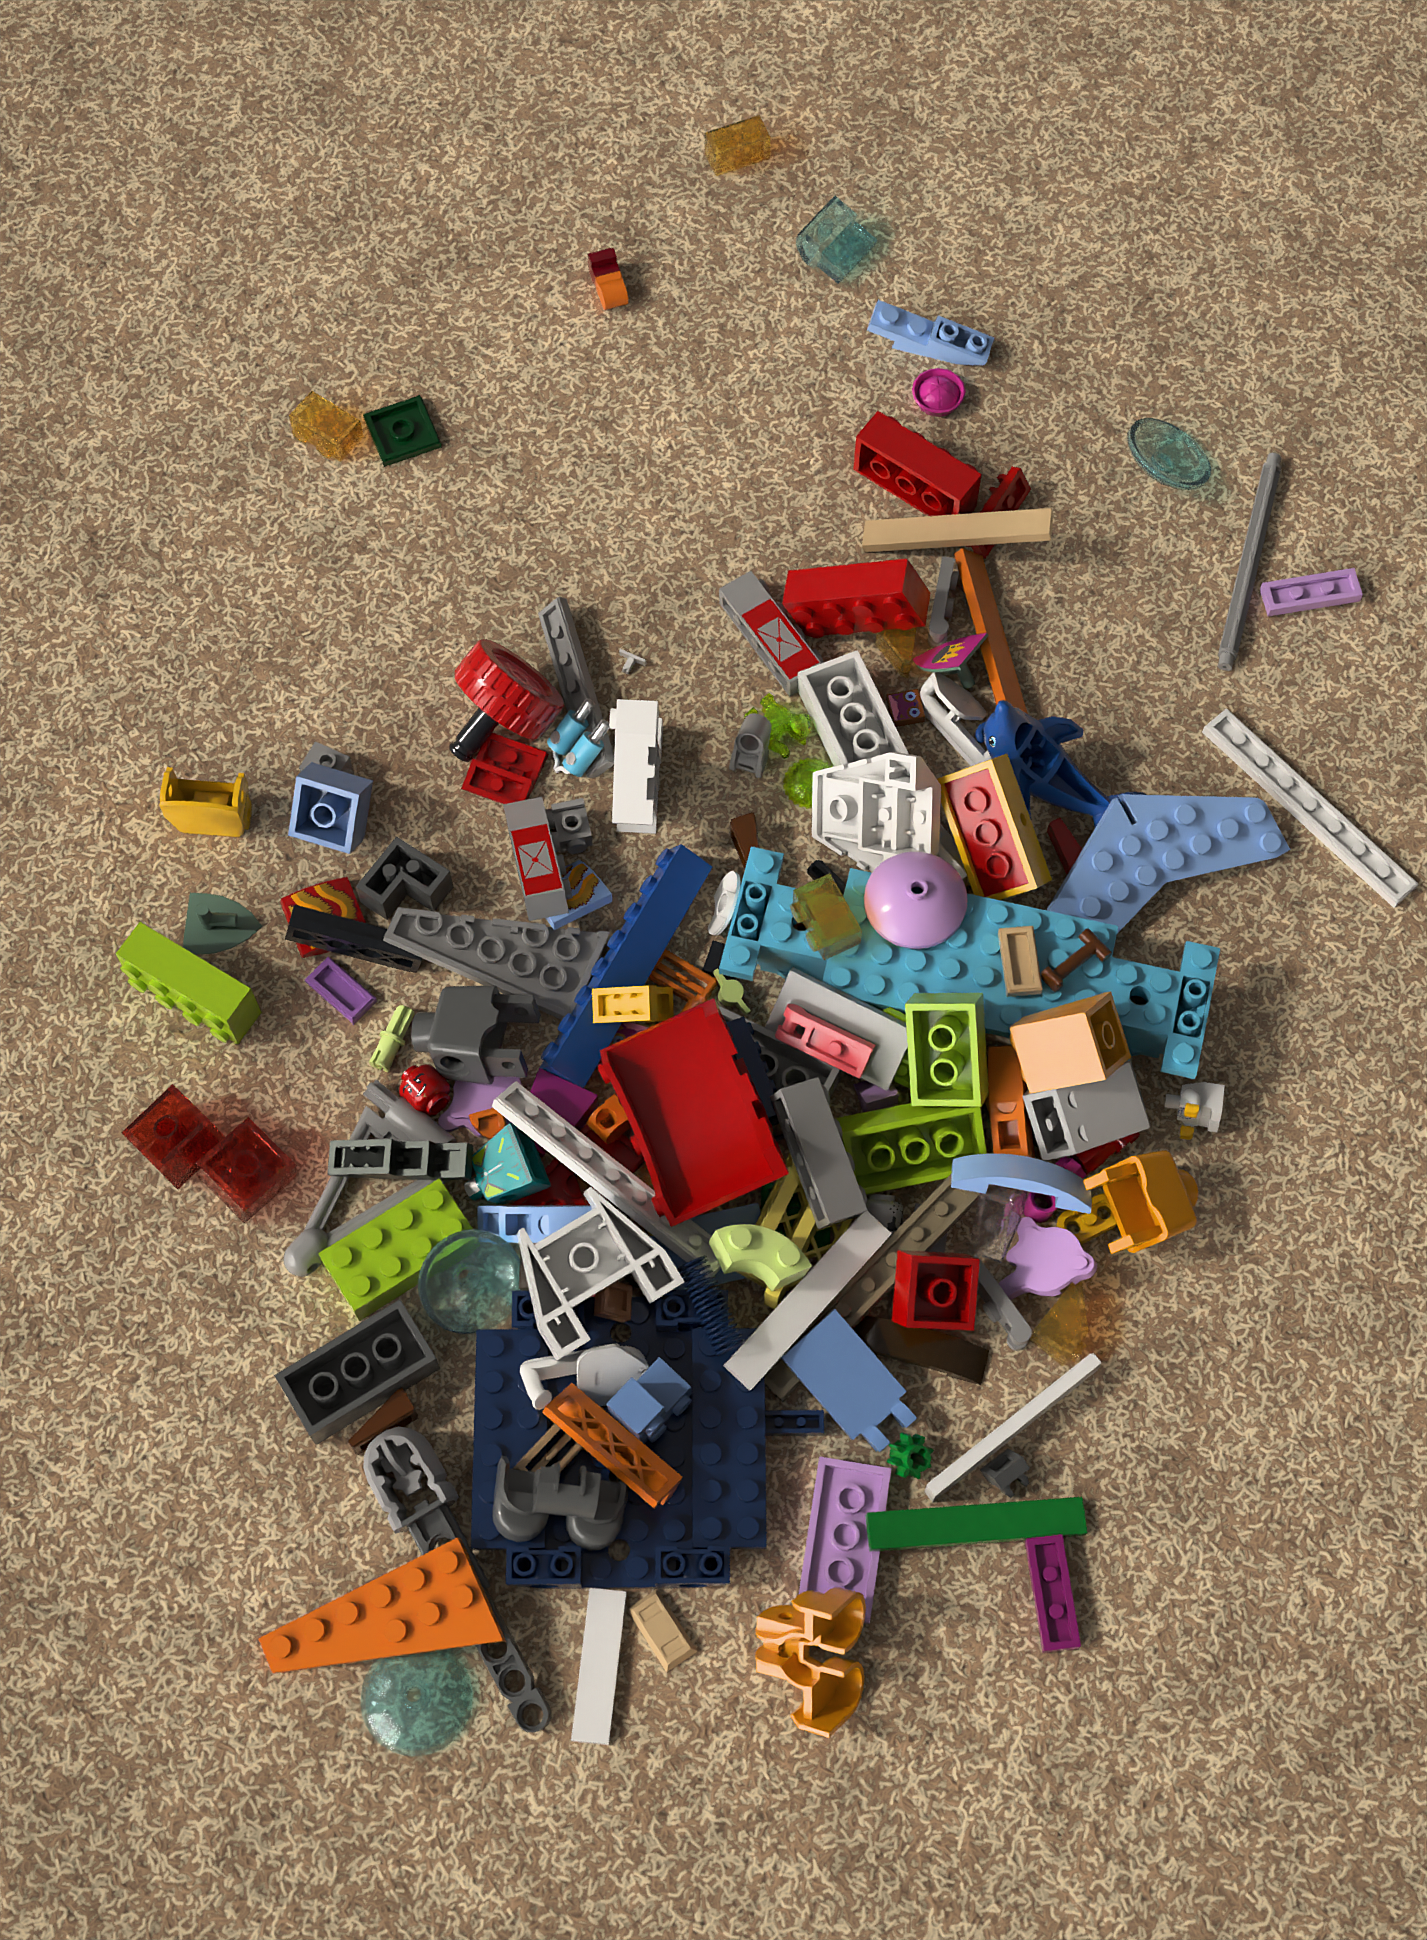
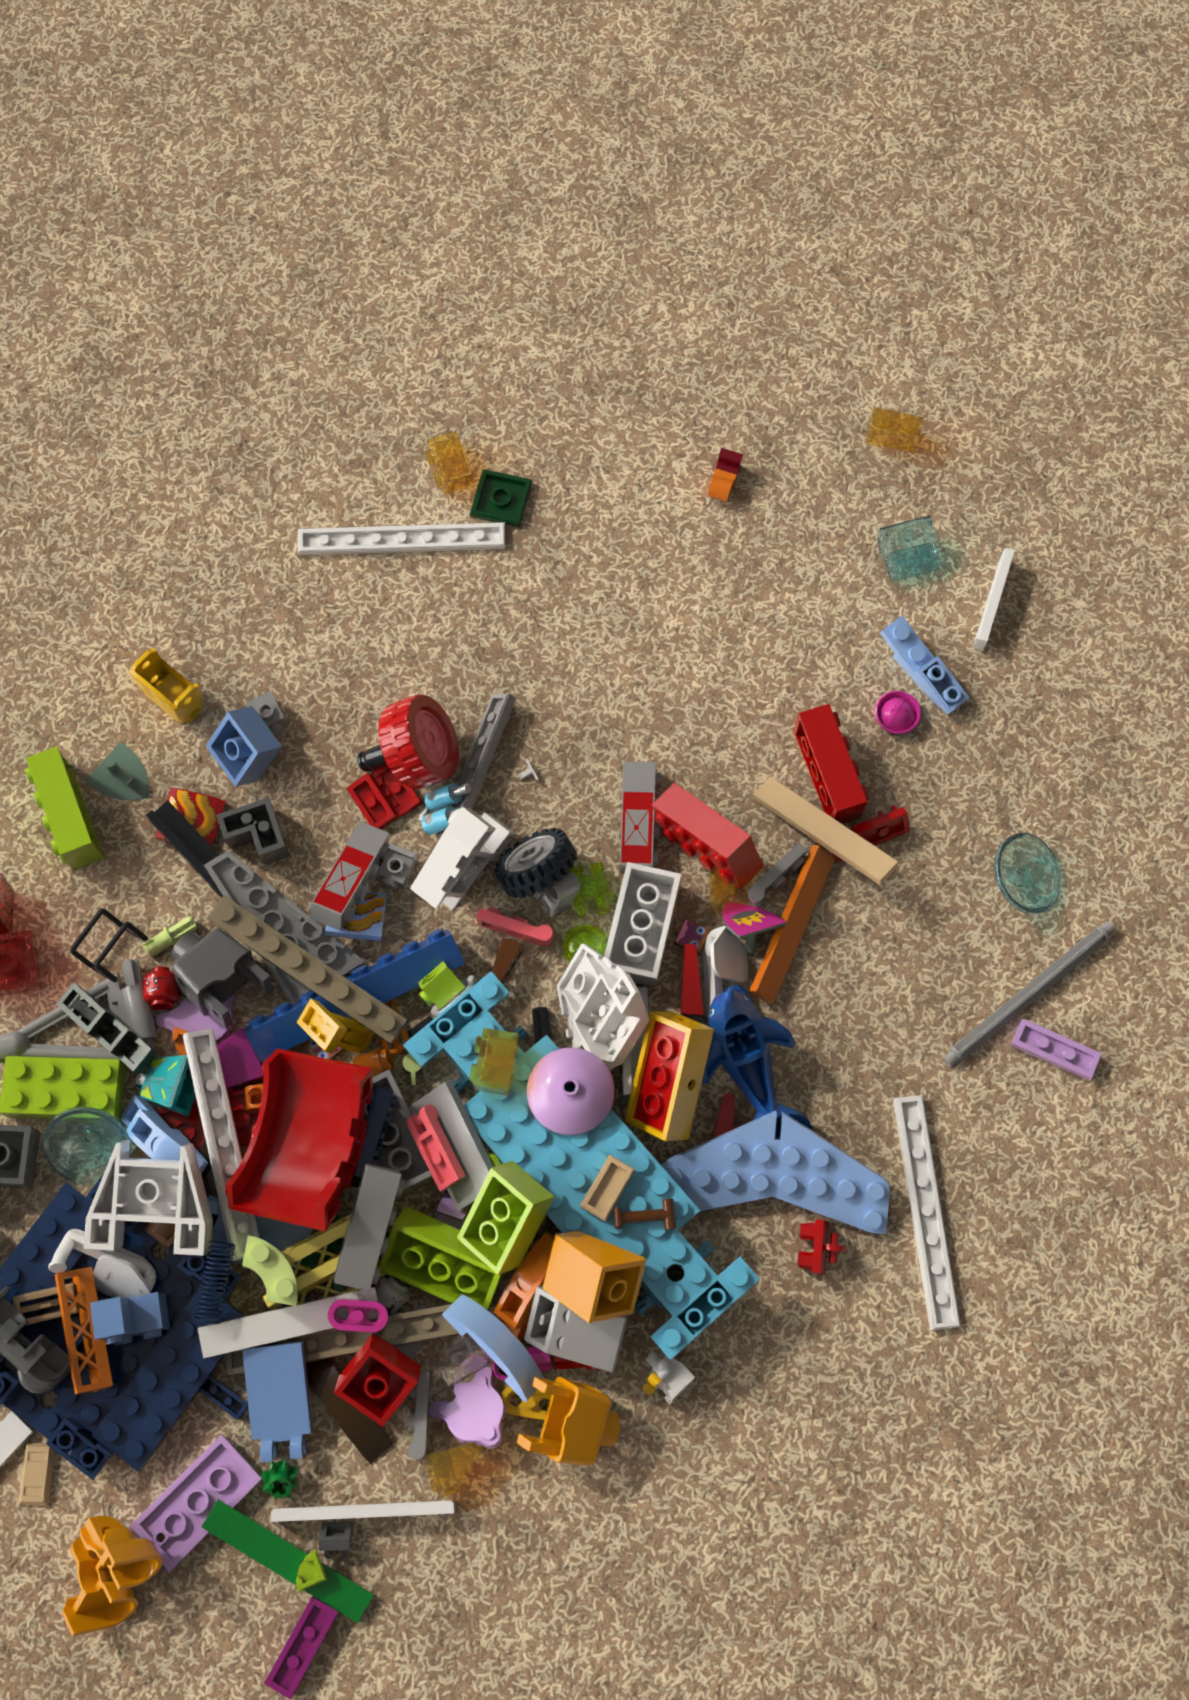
camera: 35 degrees right, 5 degrees up
(330, 528) = (401, 539): none -> white tile
(341, 990) = (164, 878): medium lavender tile -> none
(347, 1060) = (127, 926): none -> black piece
(565, 966) = (308, 970): none -> dark tan plate
(707, 898) = (440, 986): none -> lime brick
(711, 728) = (535, 863): none -> black wheel
(732, 805) = (515, 927): none -> coral plate
(871, 1243) = (357, 1316): none -> dark pink plate
(937, 744) = (691, 991): none -> red piece
(947, 240) = (993, 599): none -> white tile
(1007, 1515) = (310, 1571): none -> lime tile
(1231, 888) = (817, 1259): none -> red hips

